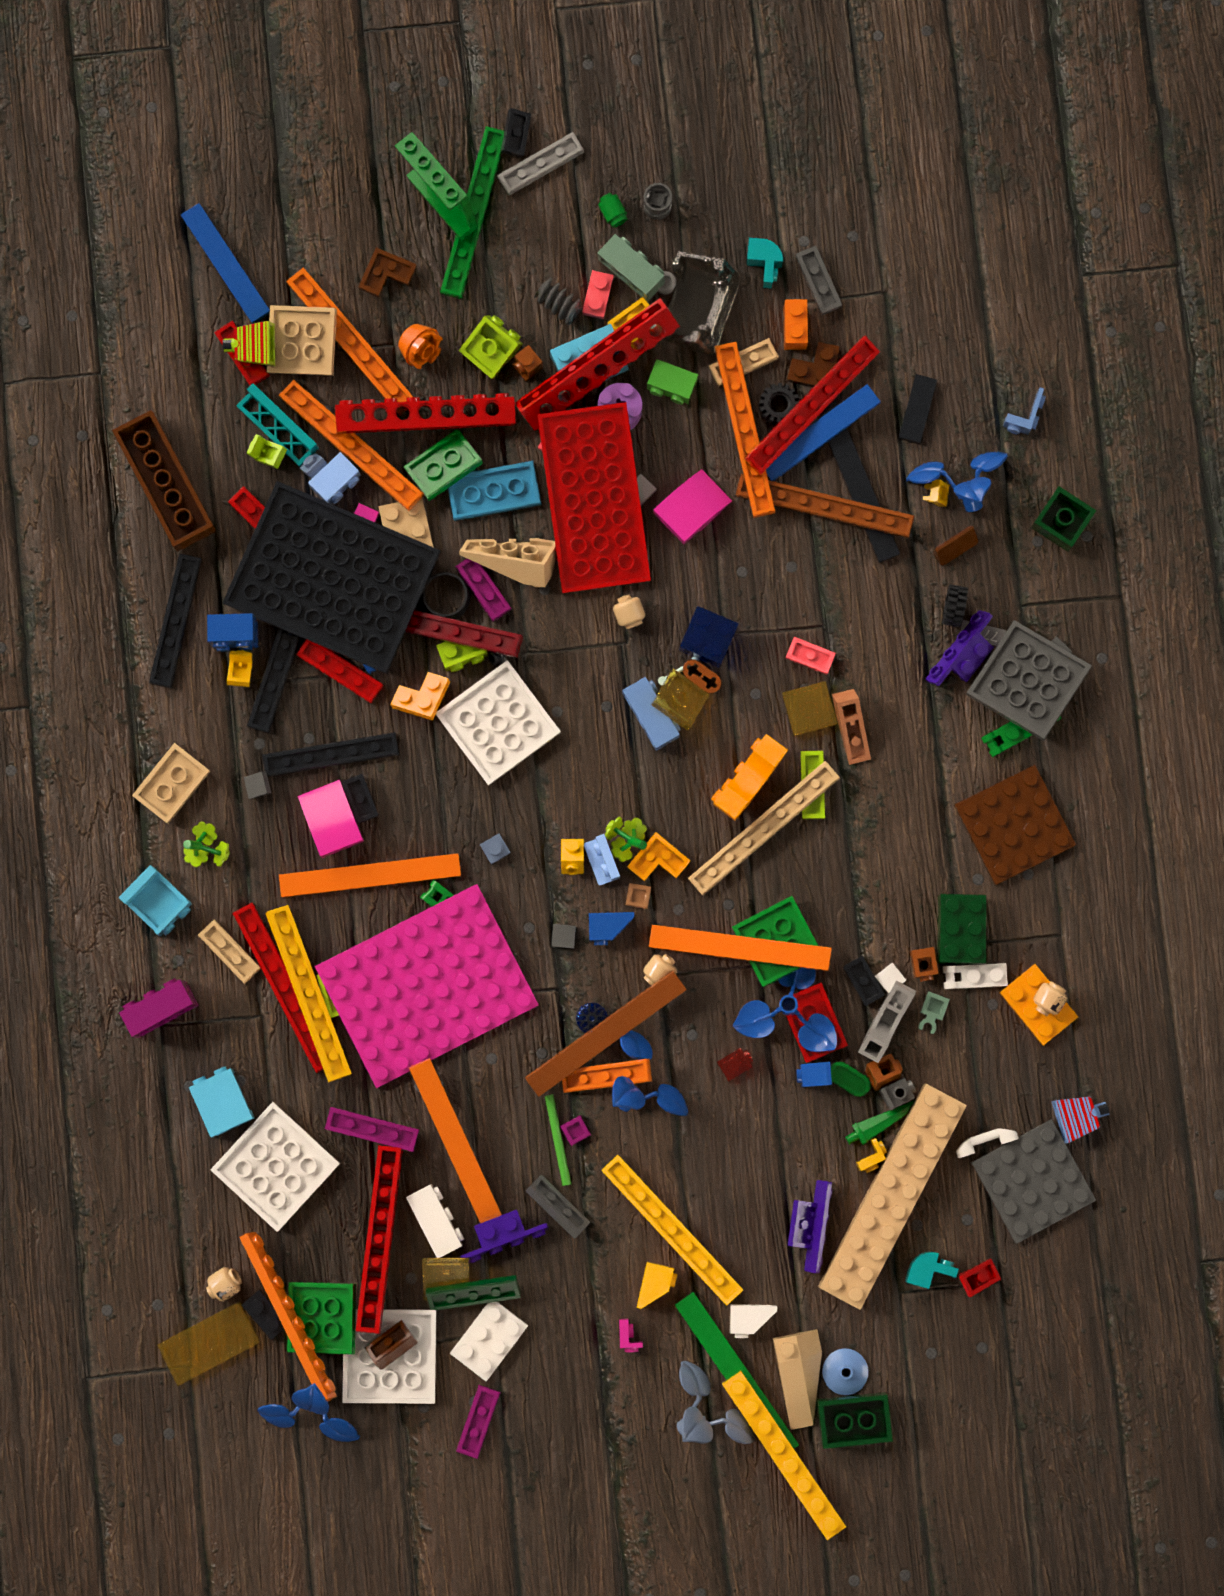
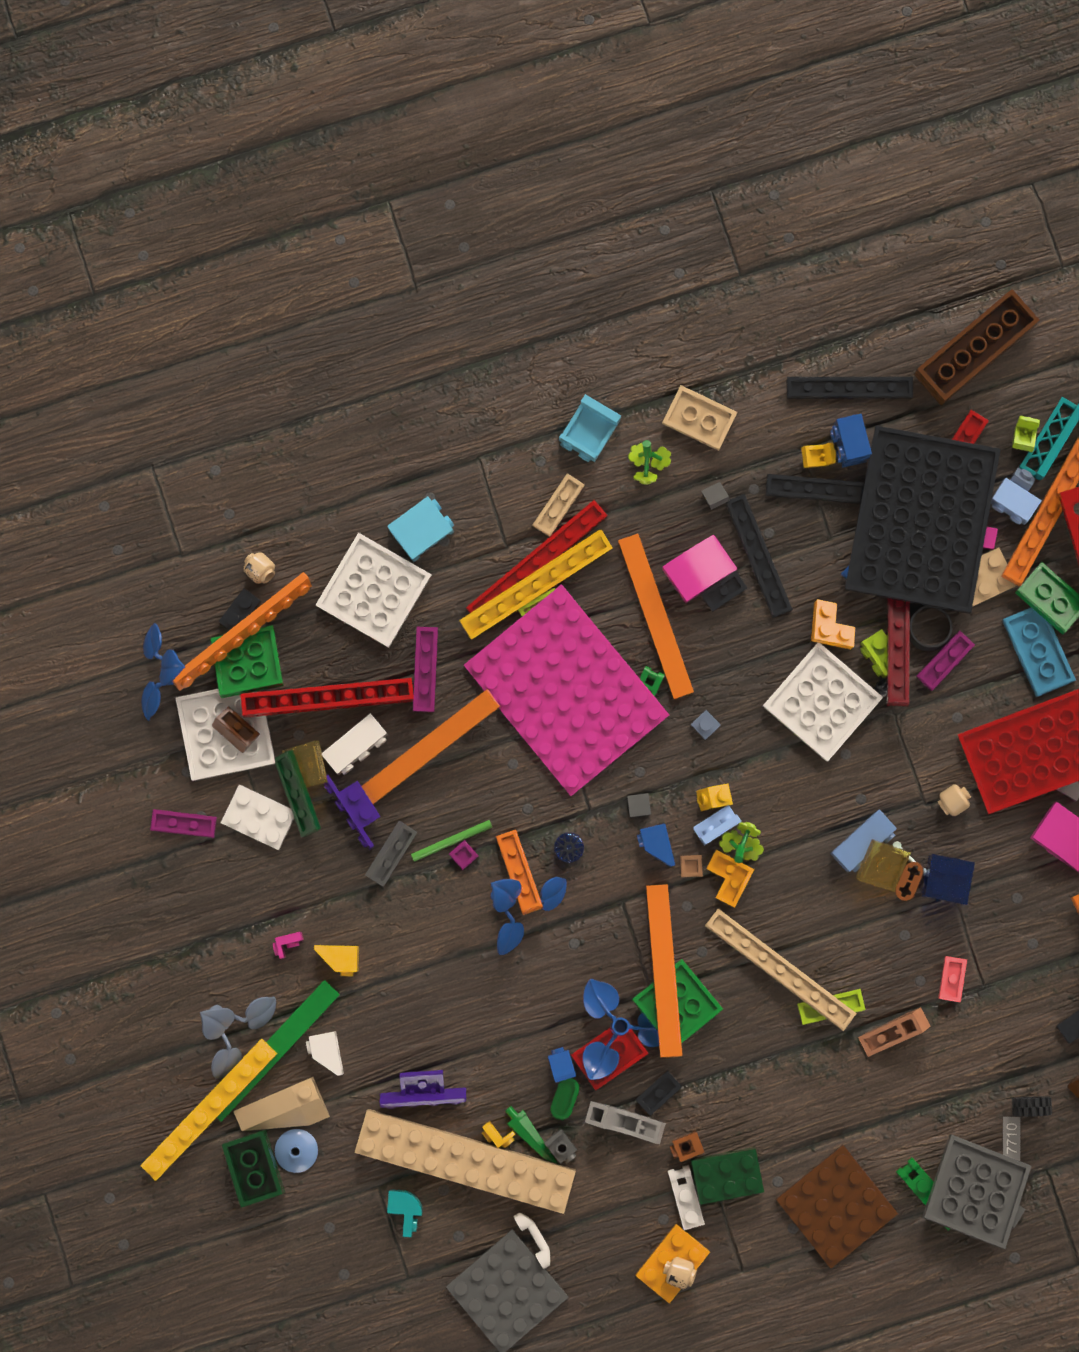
camera: 80 degrees right, 0 degrees up
(158, 1008) = (493, 452): magenta brick -> none
(208, 1343) = (204, 566): clear yellow tile -> none
(340, 670) = (837, 547): red tile -> none
(522, 561) = (978, 690): tan wedge -> none
(605, 1033) = (558, 863): dark orange tile -> none
(658, 968) = (626, 901): tan head -> none
(672, 1230) = (391, 963): yellow plate -> none
(735, 1063) = (556, 989): clear red bracket -> none
(749, 777) = (824, 946): light orange brick -> none
(809, 708) = (902, 988): clear yellow tile -> none
(887, 1064) = (585, 1133): dark orange brick -> none
(888, 977) = (667, 1115): white tile -> none
(934, 1008) = (647, 1164): sand green plate -> none
(965, 653) = (989, 1126): dark purple bracket -> none
(979, 1277) = (407, 1258): red slope -> none
(1078, 1116) = (575, 1322): torso -> none

